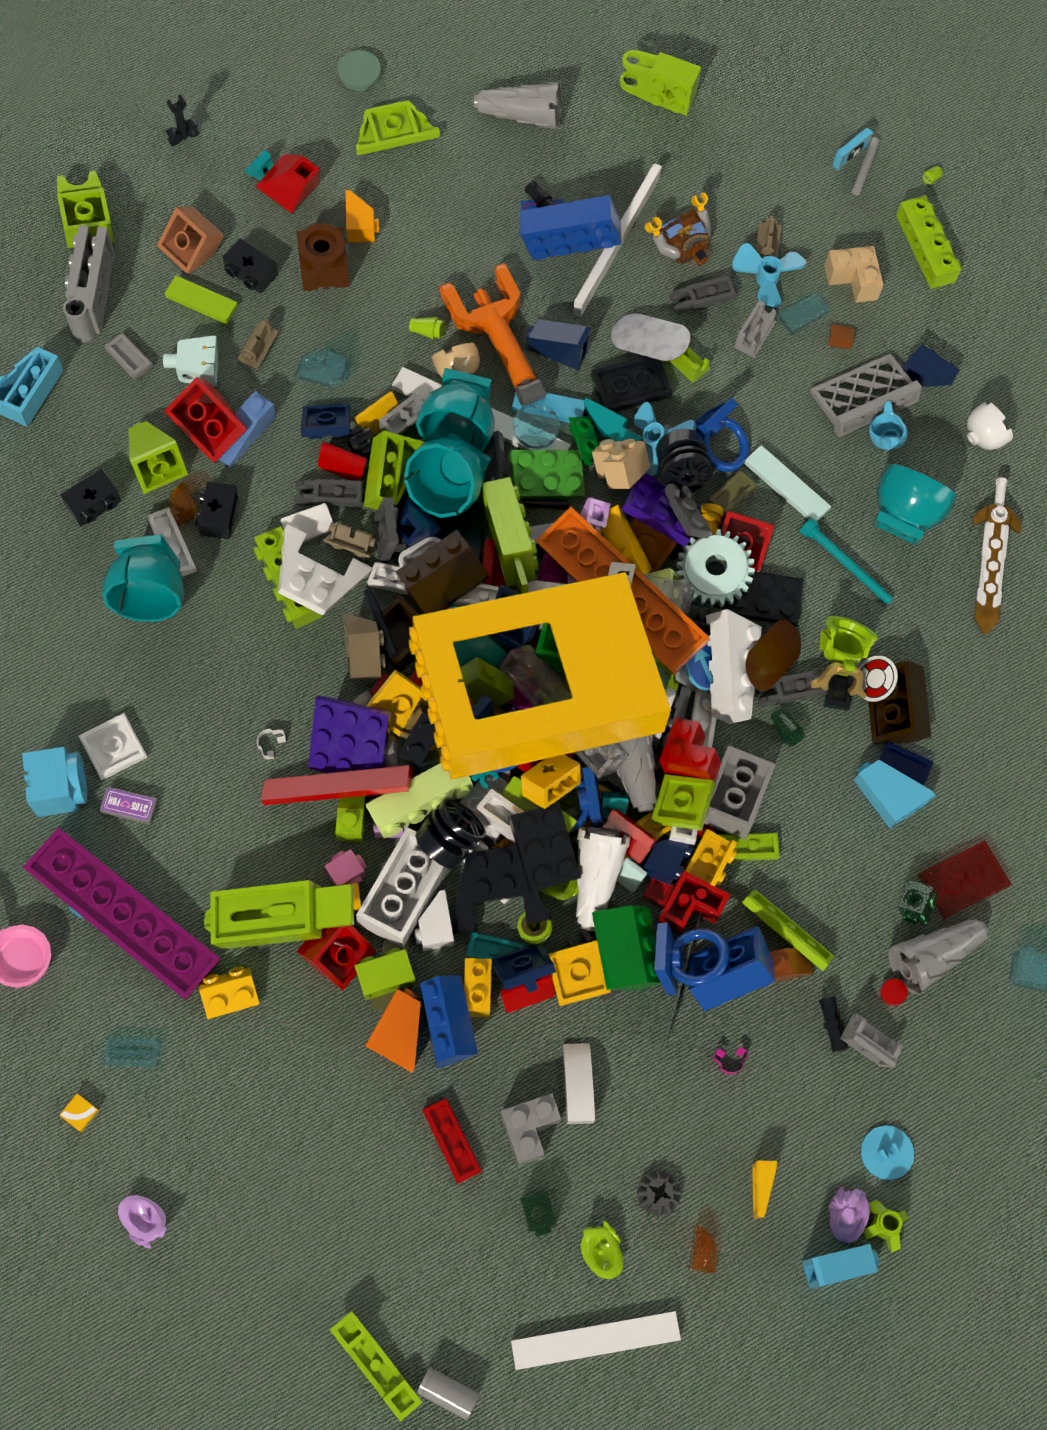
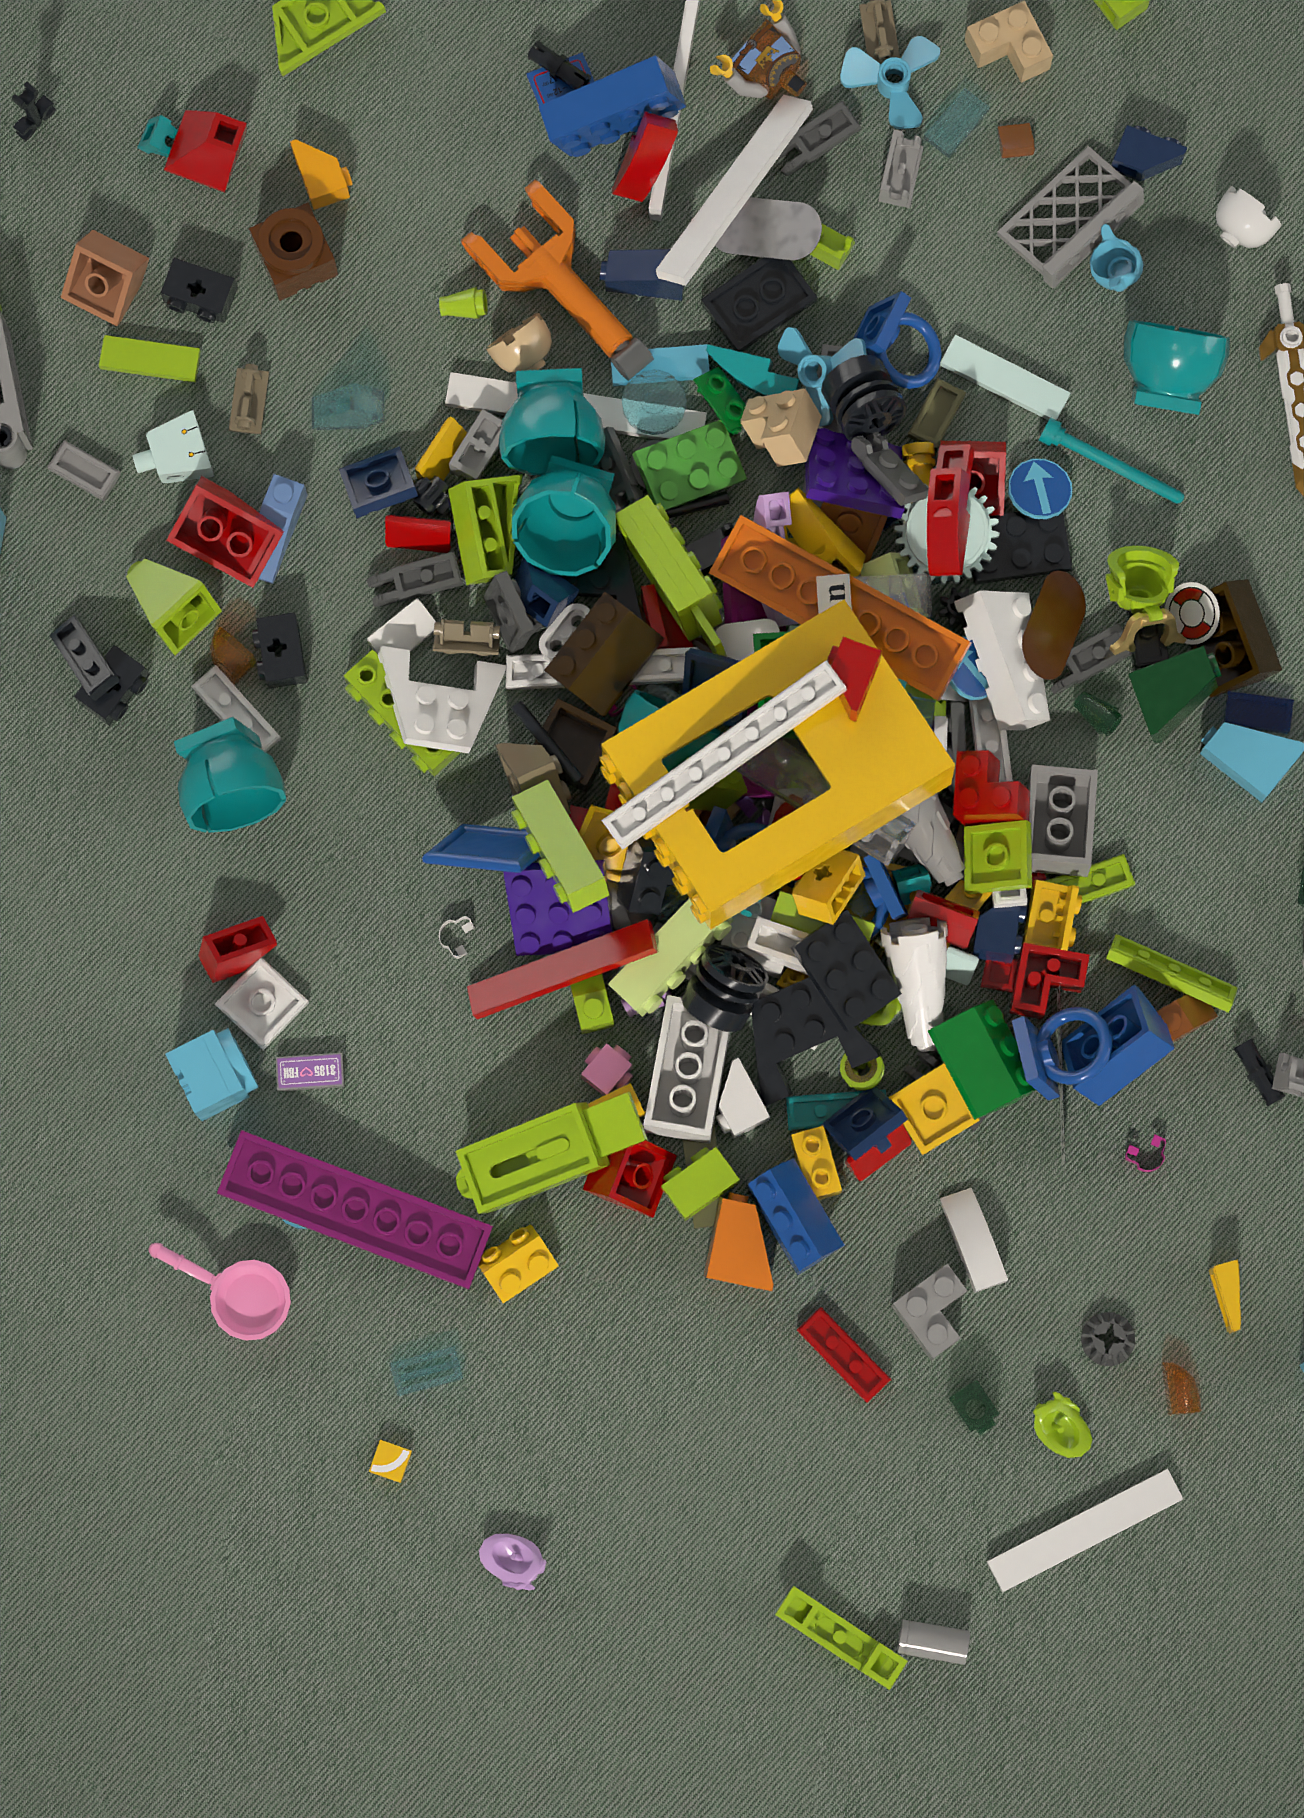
camera: 10 degrees left, 10 degrees up
(77, 472) = (84, 657): none -> black tile
(107, 700) = (235, 948): none -> red slope
(314, 683) = (483, 849): none -> blue piece
(361, 690) = (560, 846): none -> lime brick
(499, 648) = (724, 754): none -> white tile
(582, 266) = (645, 157): none -> red slope
(615, 621) = (856, 668): none -> red slope
(635, 303) = (734, 190): none -> white tile
(719, 548) = (947, 510): none -> red slope
(790, 562) = (1040, 488): none -> blue piece
(849, 724) = (1174, 689): none -> dark green slope

